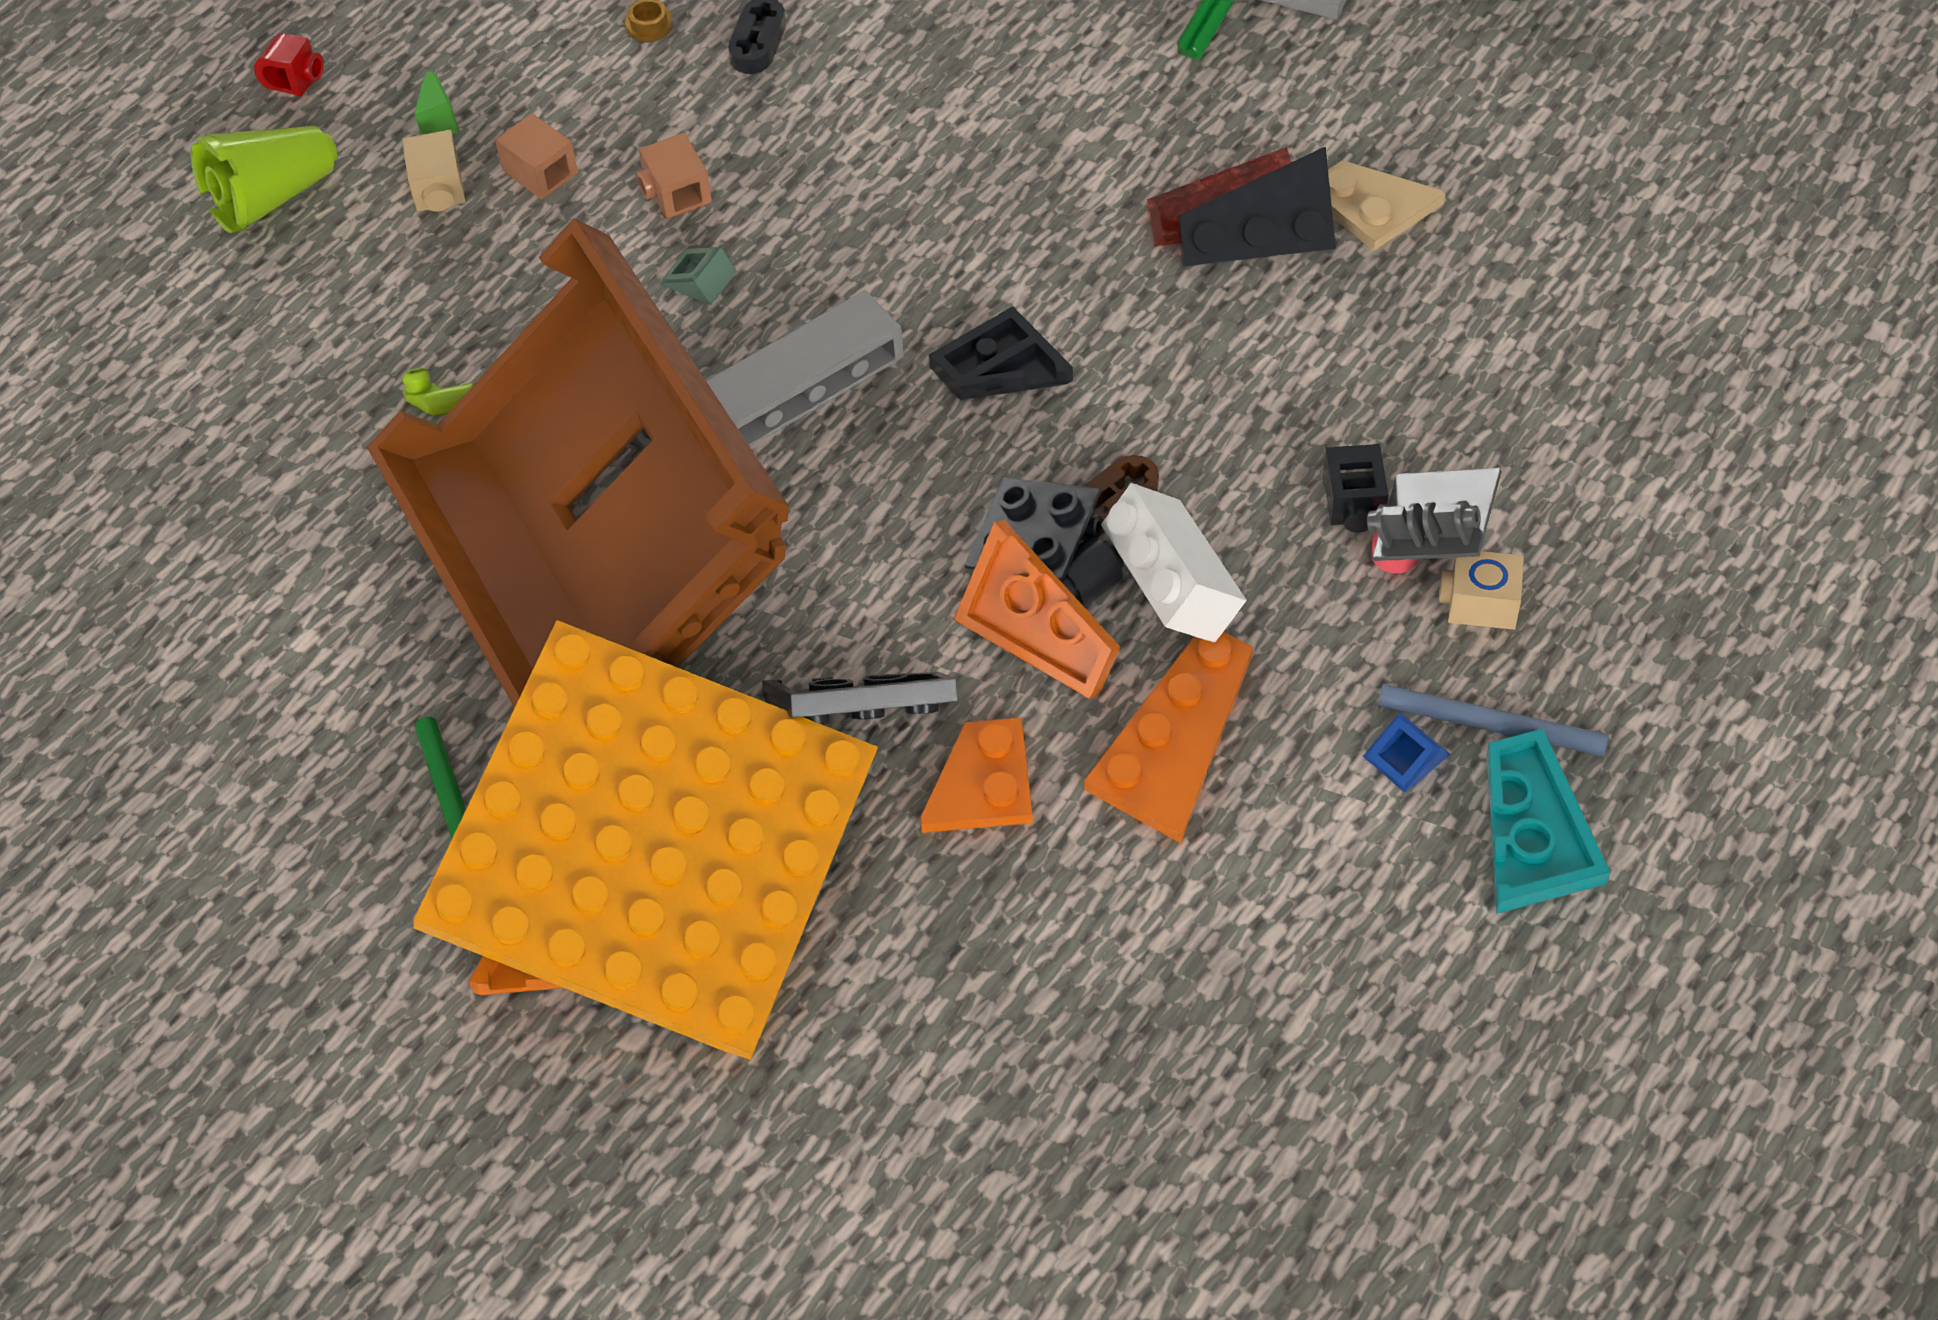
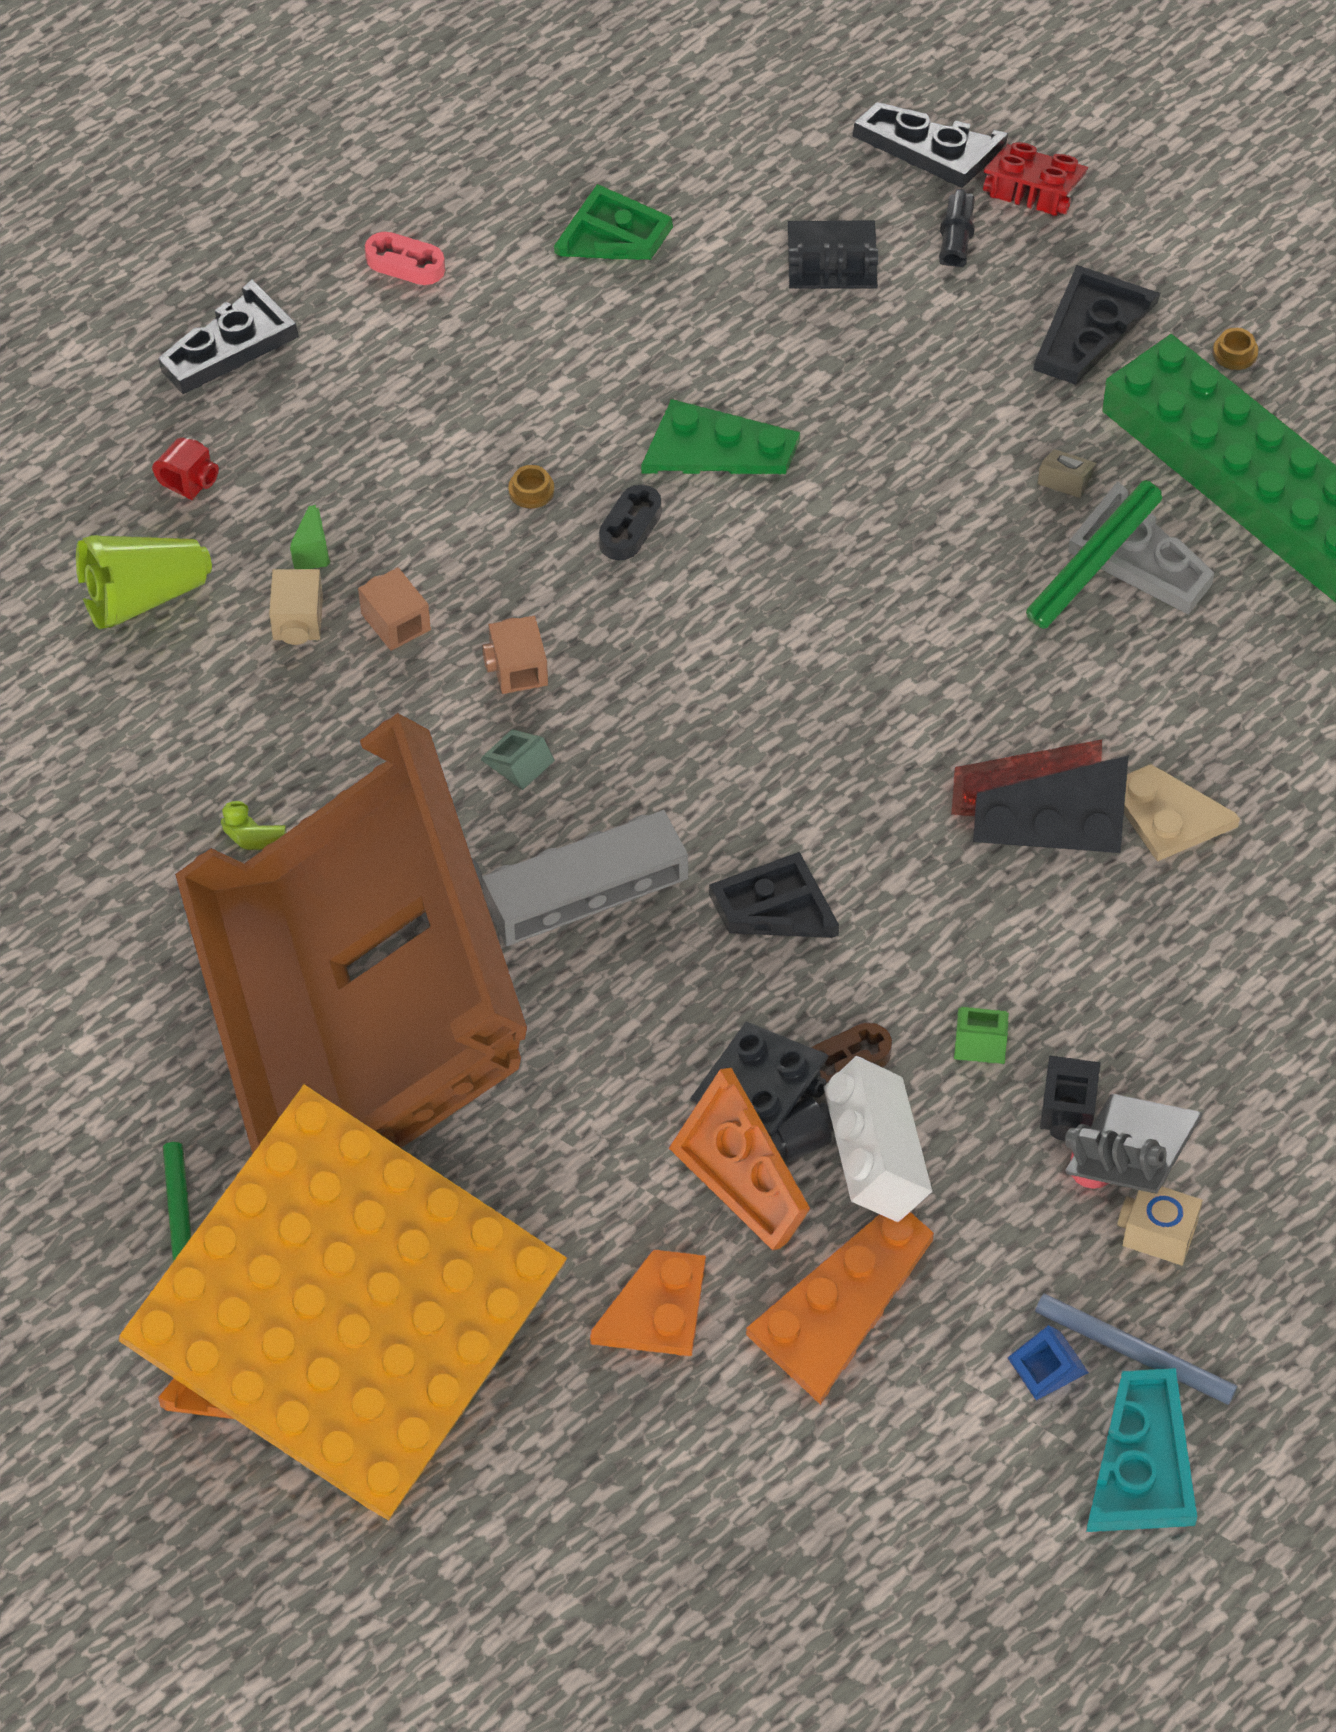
camera: 10 degrees right, 0 degrees up
(826, 696) = (585, 1205): wing -> none
(1246, 447) = (981, 1035): none -> bright green slope

